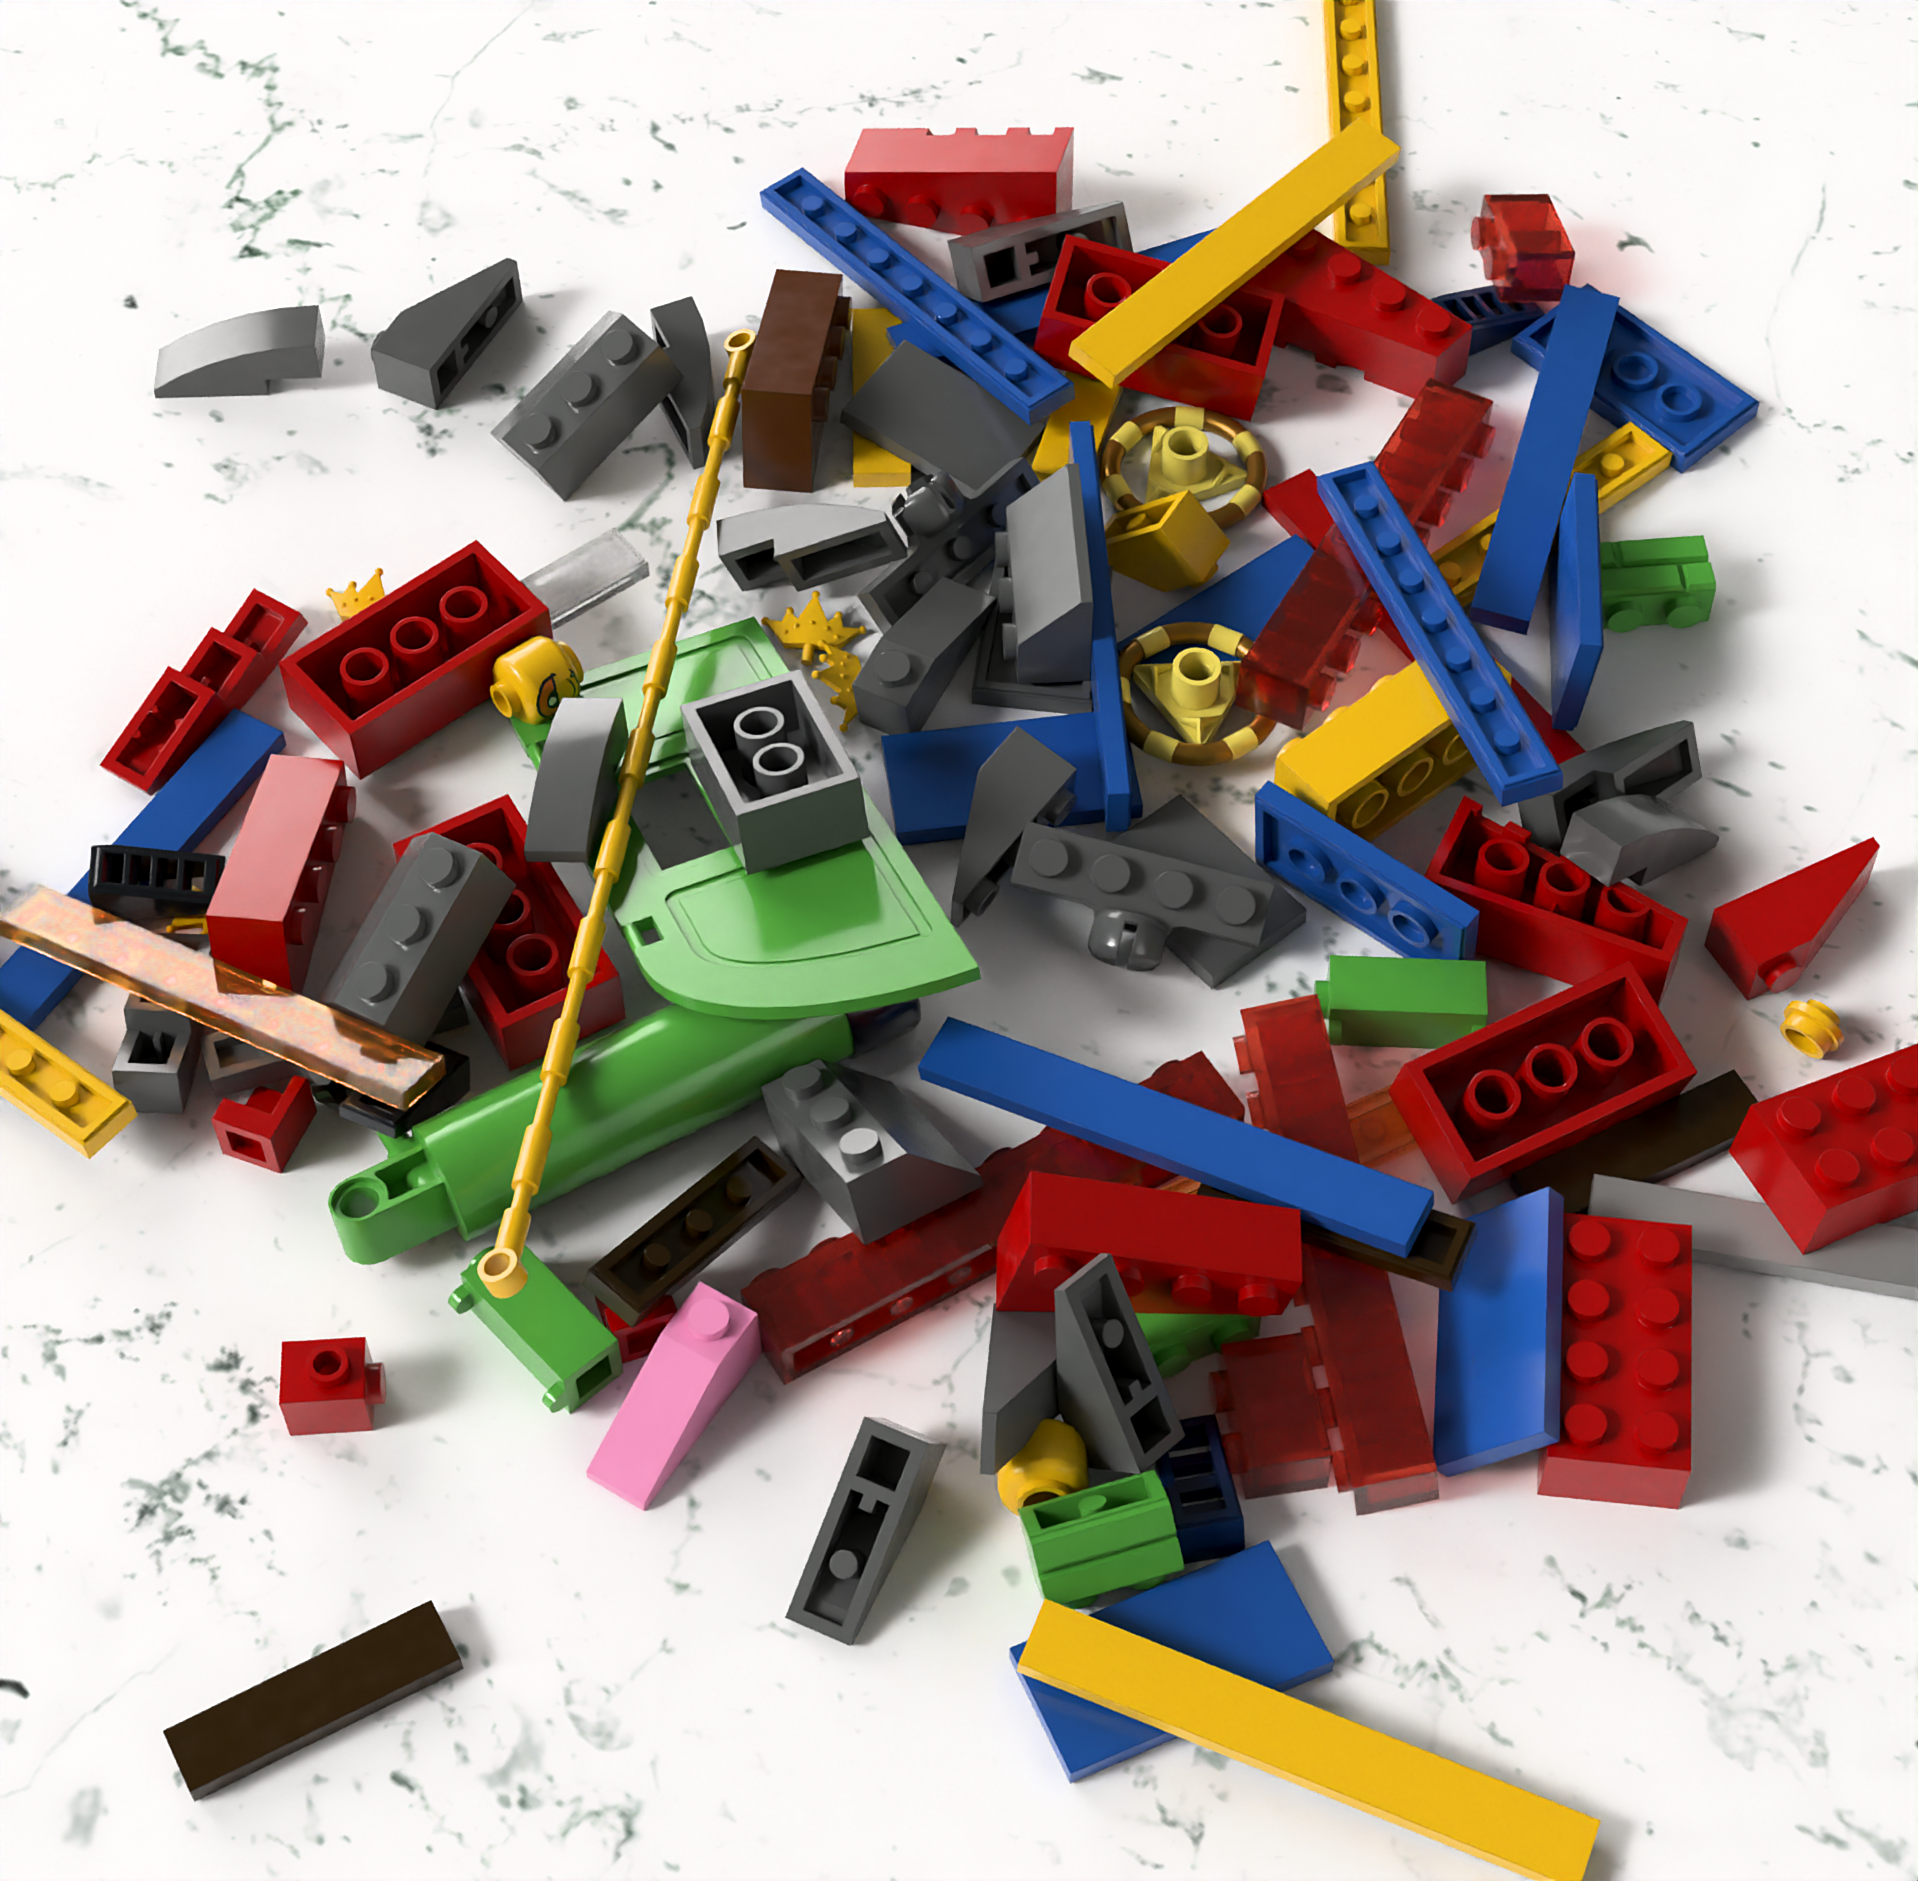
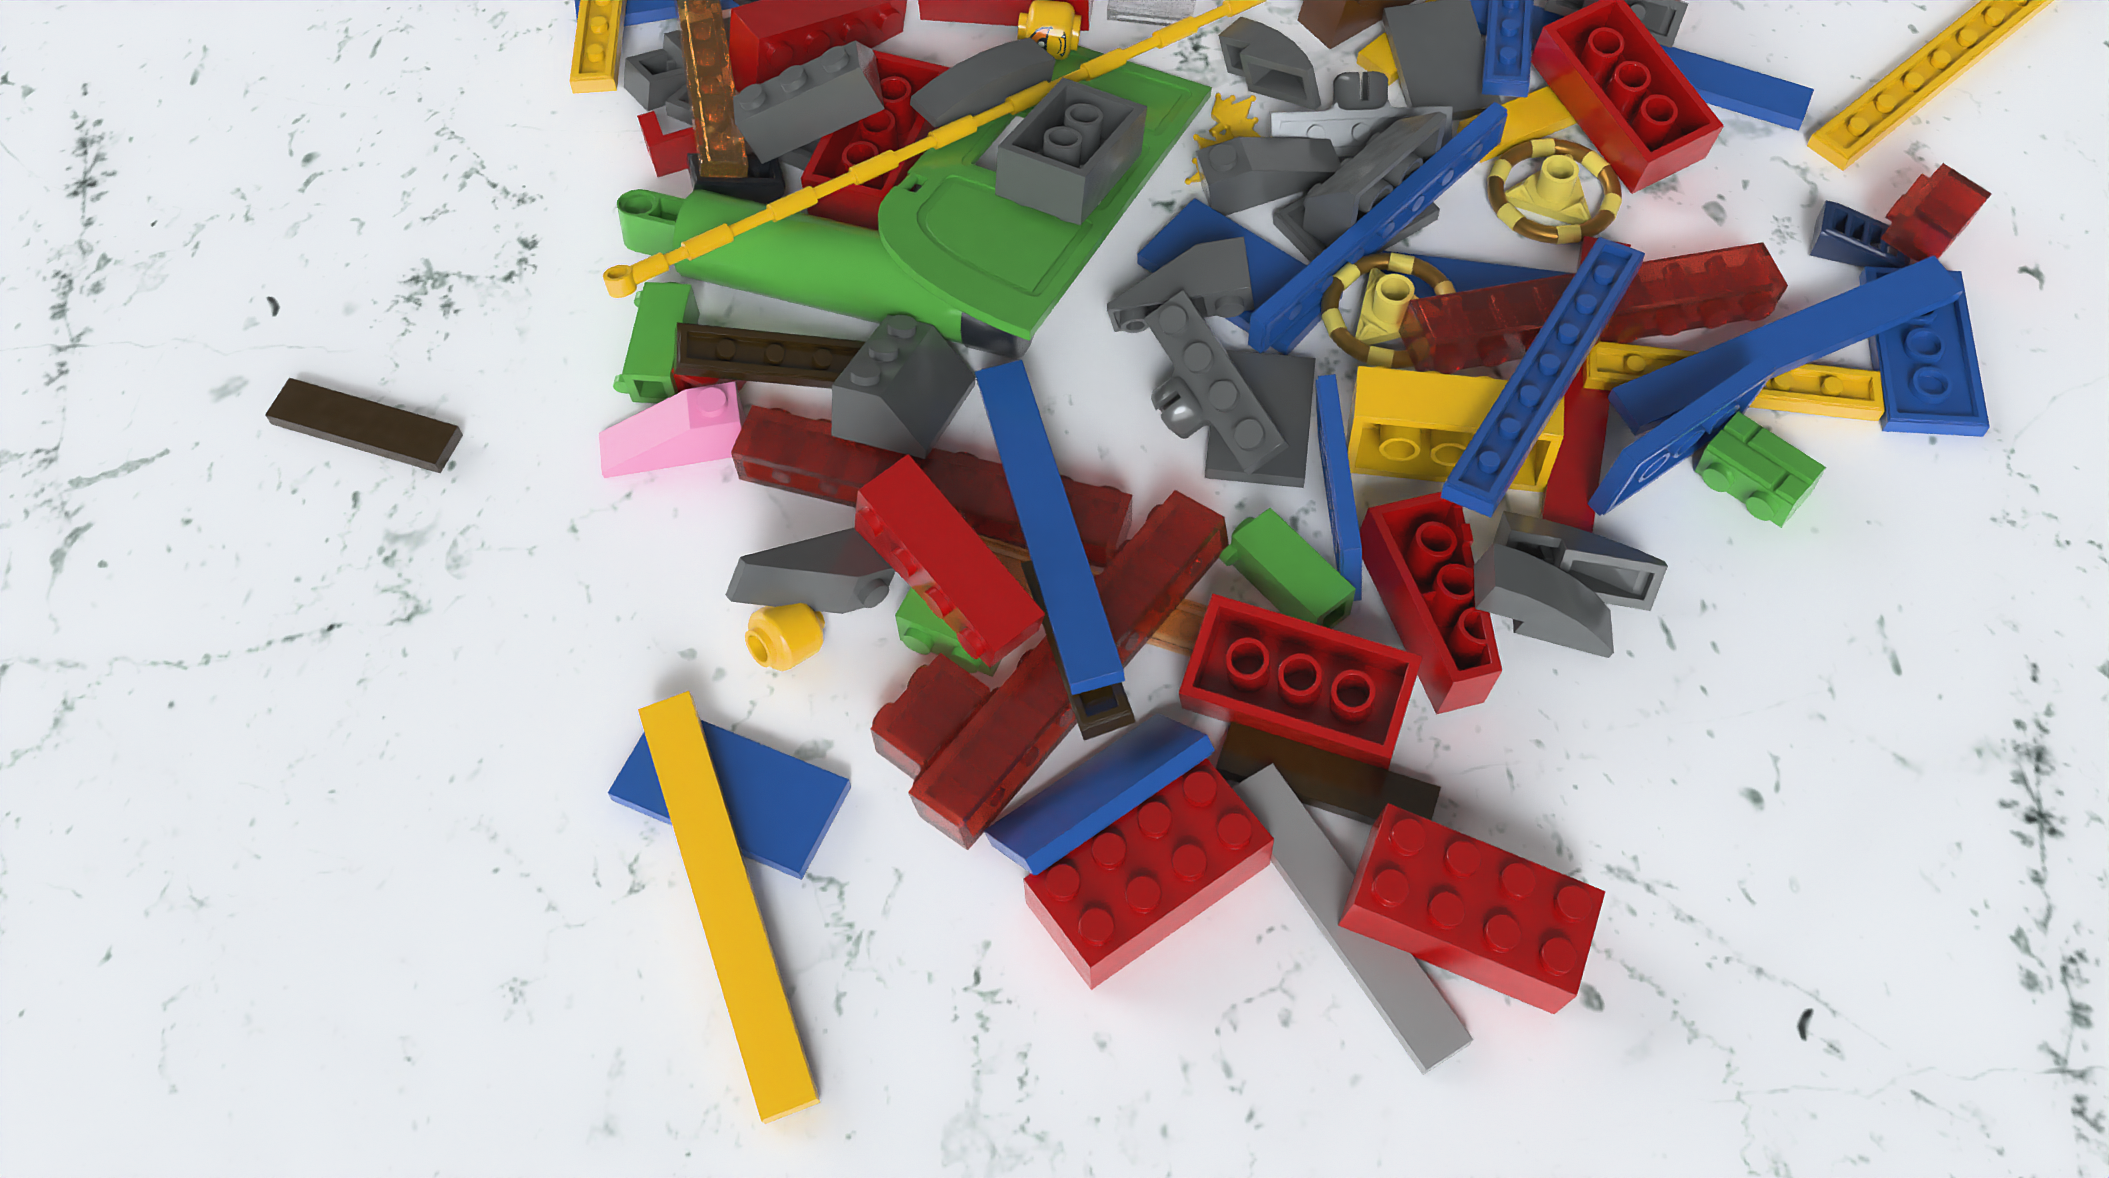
camera: 50 degrees right, 5 degrees up
(329, 1386) = (545, 295): red brick -> none
(865, 1527) = (673, 576): dark grey slope -> none
(1102, 1540) = (759, 692): bright green brick -> none
(1108, 1373) = (850, 602): dark grey slope -> none
(1165, 543) = (1481, 218): yellow slope -> none
(1206, 1528) = (833, 744): dark blue slope -> none
(1233, 253) = (1720, 75): yellow tile -> none
(1363, 317) = (1768, 173): red wedge -> none
(1778, 929) = (1589, 737): red slope -> none
(1811, 1028) = (1521, 808): yellow plate -> none

